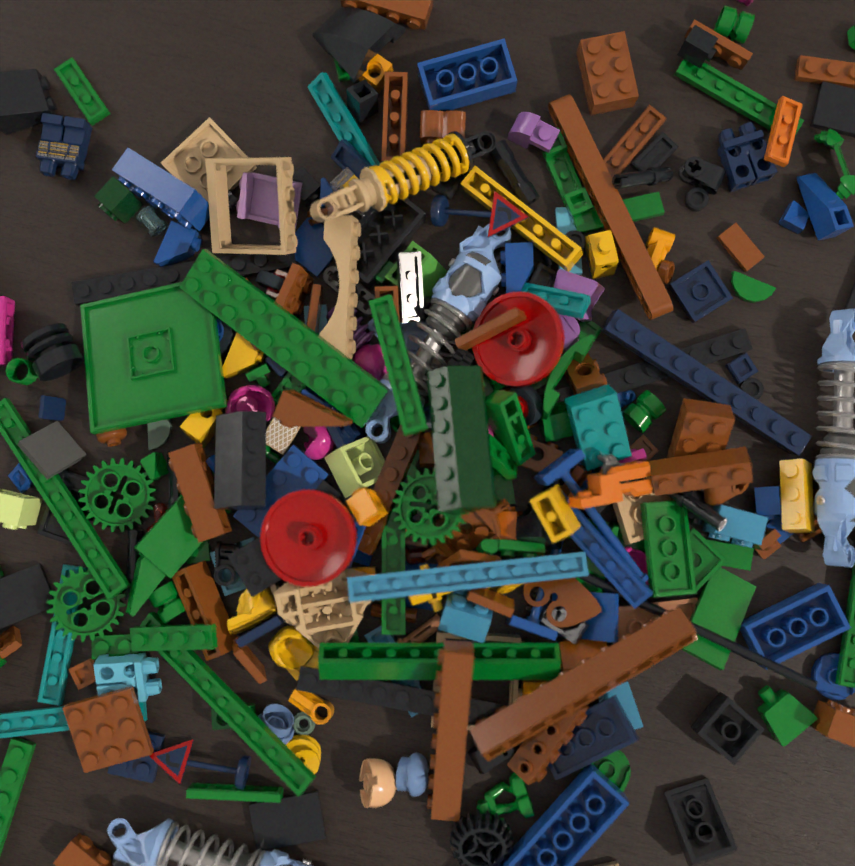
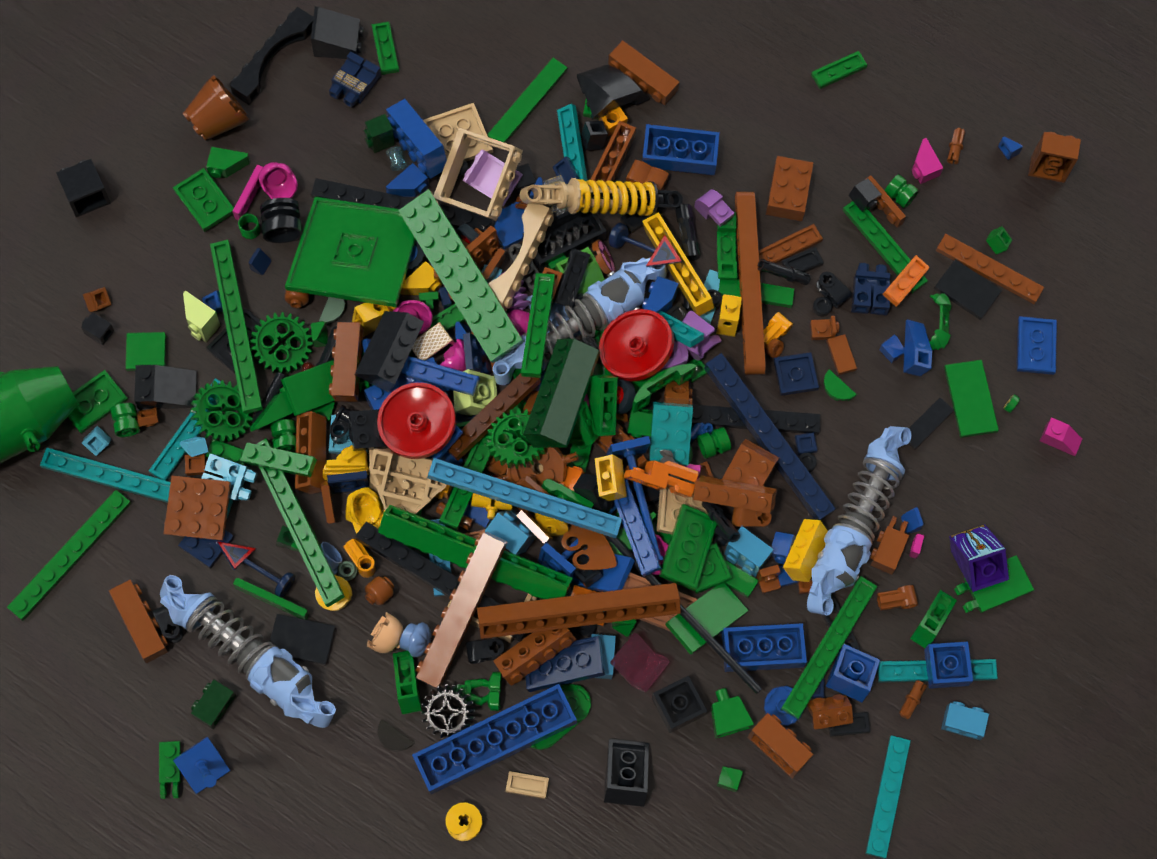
camera: 10 degrees right, 15 degrees down
(29, 305) = (278, 180): none -> dark pink piece
(52, 449) = (247, 290): dark grey tile -> none
(74, 657) = (194, 446): none -> medium azure slope
(270, 91) = (528, 101): none -> green tile
(301, 411) = (452, 333): dark orange slope -> none
(312, 468) = (440, 376): none -> blue tile
(348, 734) = (379, 590): none -> dark orange head
(366, 506) = (469, 418): light orange brick -> none
(424, 830) = (406, 683): none -> green slope
(436, 246) = (604, 257): none -> dark orange tile
(490, 329) = (618, 328): dark orange tile -> none
(667, 700) = (639, 663): none -> clear pink bracket
(710, 224) = (824, 328): none -> dark orange bracket
(811, 783) = (729, 778): none -> green slope

